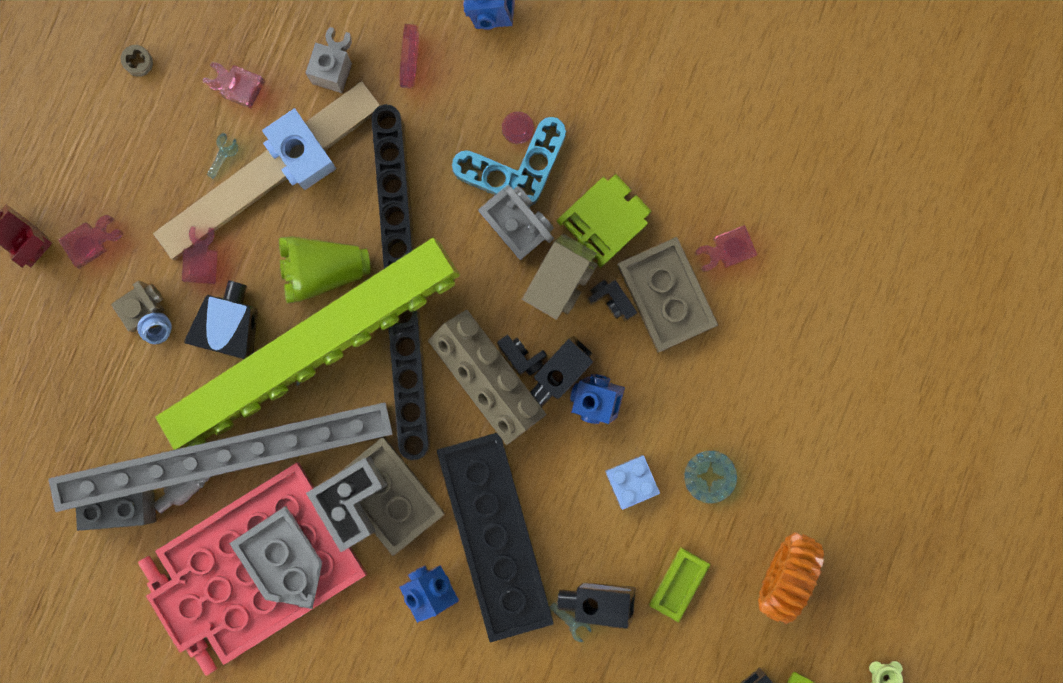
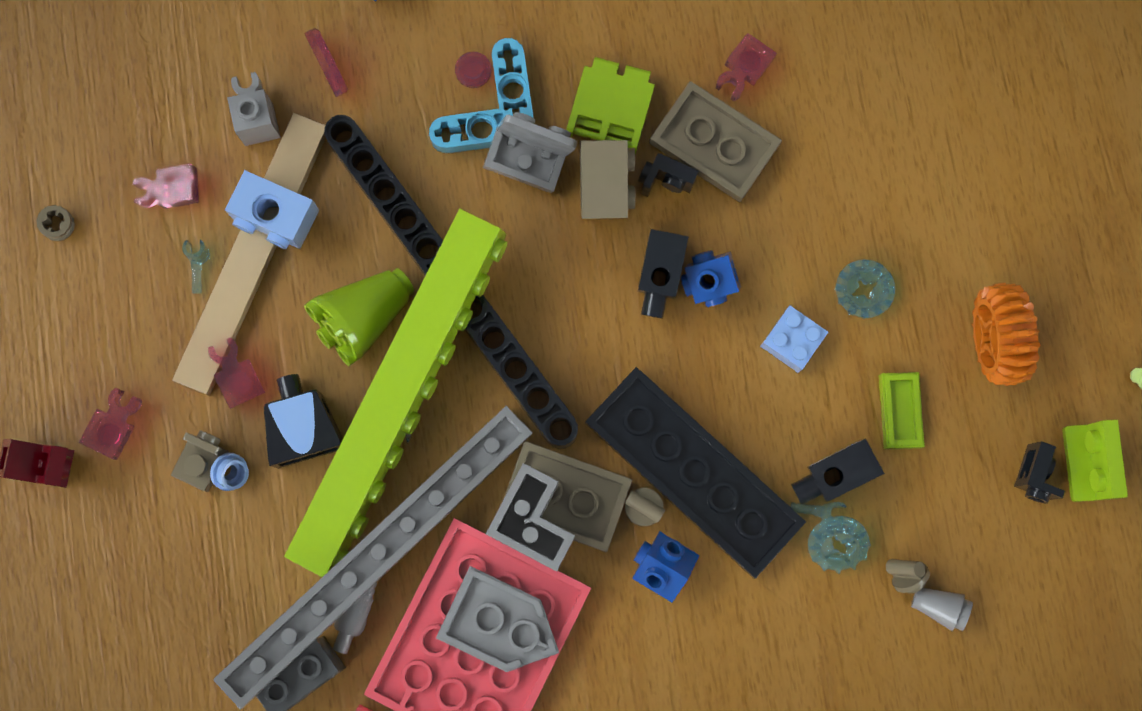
camera: 30 degrees left, 5 degrees down
(442, 539) = (644, 507): none -> dark tan plate
(486, 377) = (591, 317): dark tan brick -> none
(515, 353) = (605, 284): black bracket -> none
(577, 650) = (846, 531): none -> clear light blue gear

